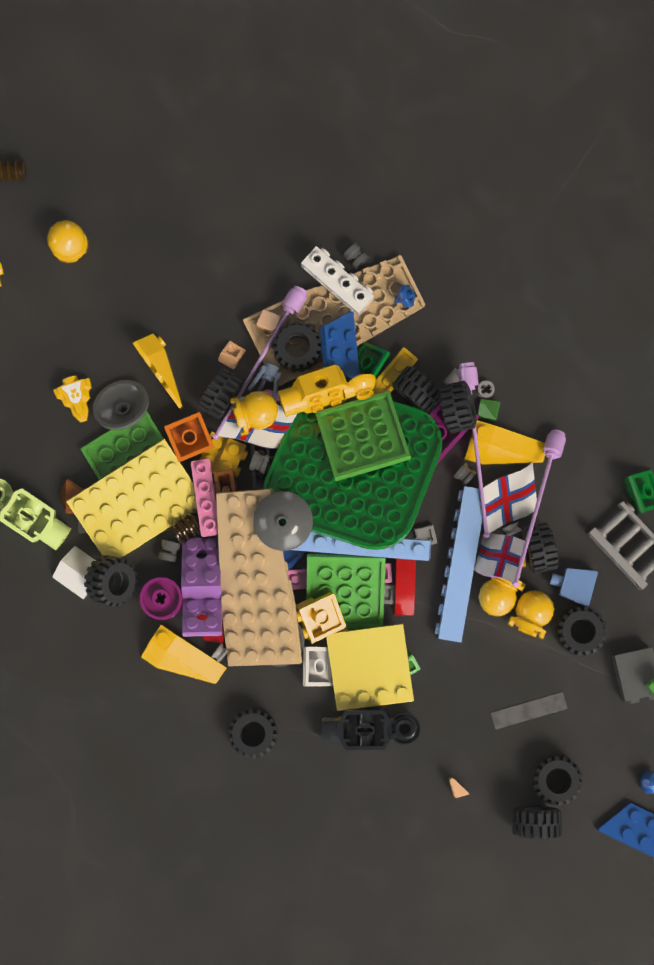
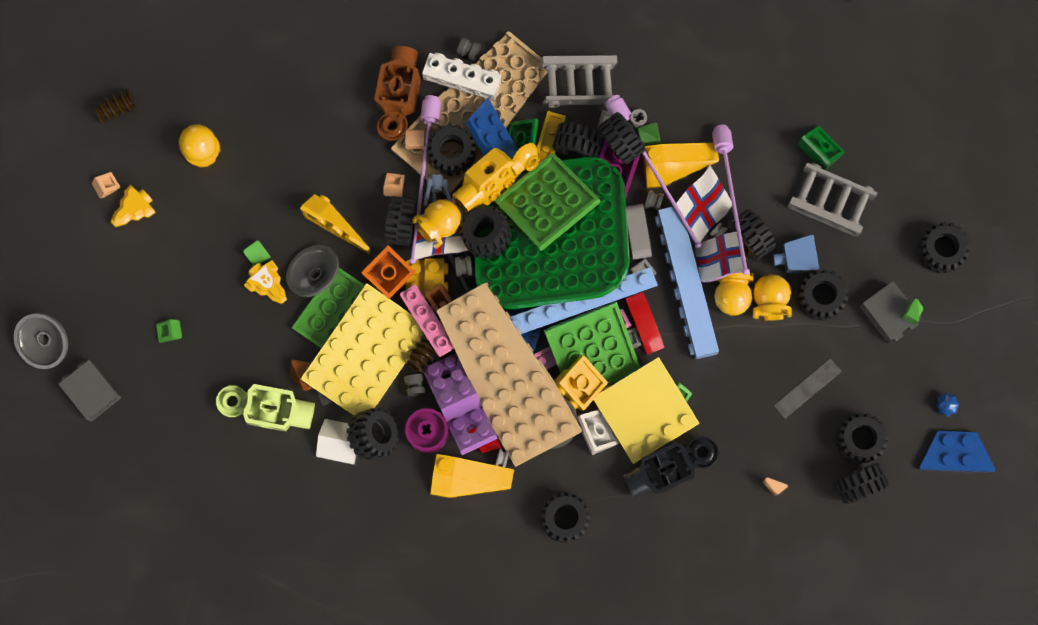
camera: 20 degrees left, 5 degrees down
(77, 365) = (256, 253): none -> bright green slope
(271, 269) = (397, 91): none -> dark orange brick
(289, 426) = (482, 219): none -> black tyre
(297, 517) = (504, 320): dark grey dish -> none
(405, 296) = (529, 64): blue piece -> none
(436, 497) = (638, 232): none -> light grey beam
(443, 312) = (569, 64): none -> light grey fence

